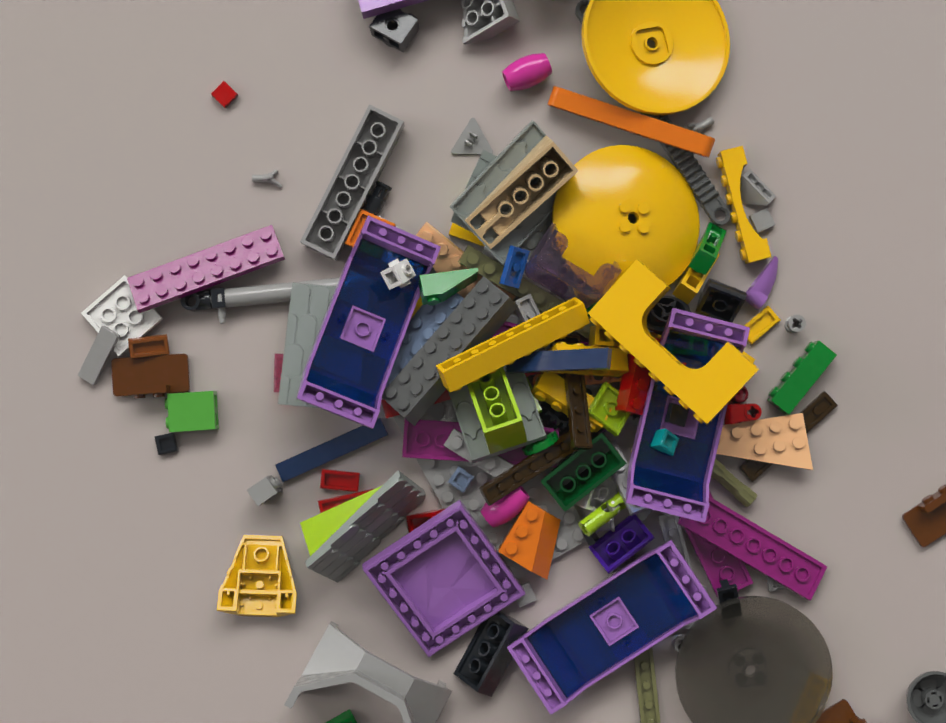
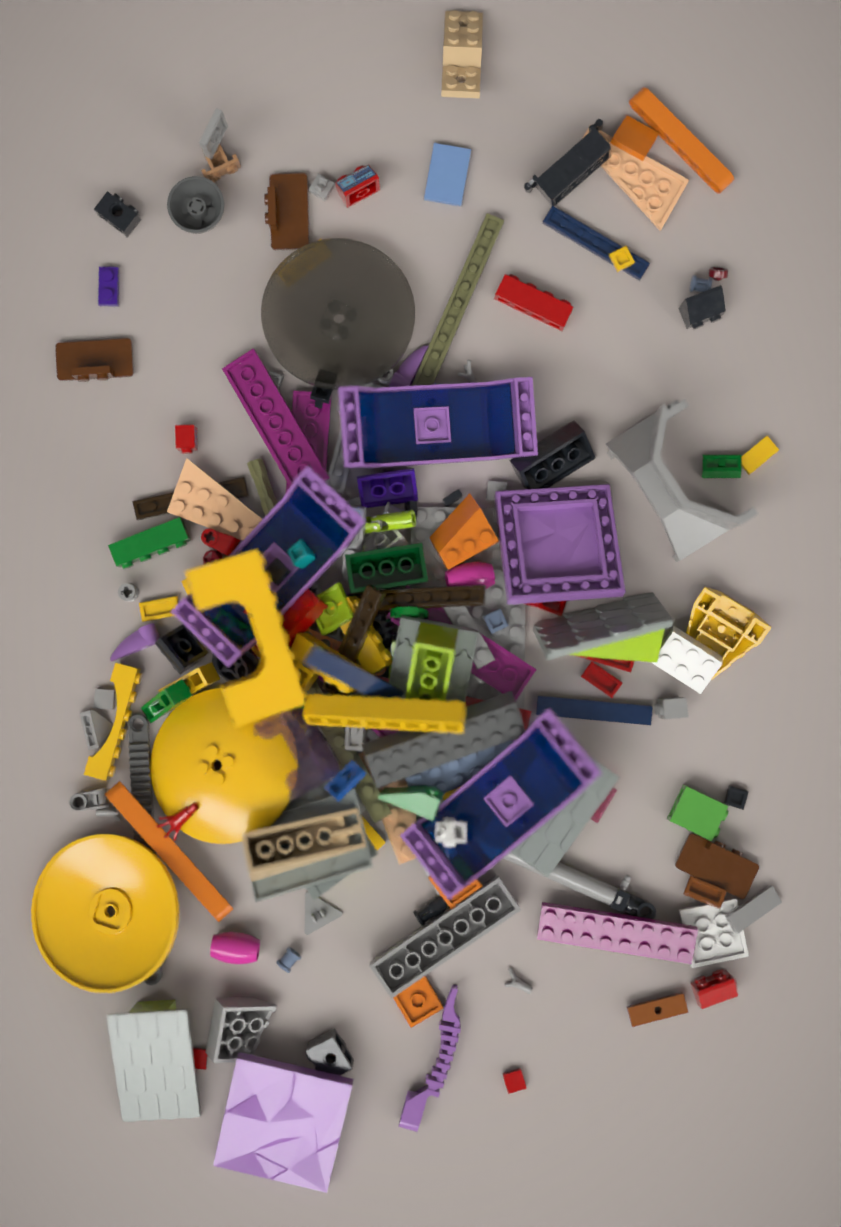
camera: 150 degrees left, 0 degrees up
(95, 268) = (714, 988): none -> red slope
(126, 232) = (669, 1007): none -> dark orange tile
(274, 540) = (688, 659): none -> white brick
(299, 30) = (416, 1101): none -> medium lavender piece
(344, 114) = (418, 1002): none -> orange tile
(475, 88) = (288, 959): none -> sand blue bush
(559, 566) = (452, 498): none -> black tile
(607, 684) = (468, 373): none -> light grey bar
(638, 153) = (178, 819): none -> red piece
(662, 659) = (407, 371): none -> medium lavender piece
(722, 129) = (92, 799): none -> light grey piece
(822, 487) = (186, 438): none -> red brick

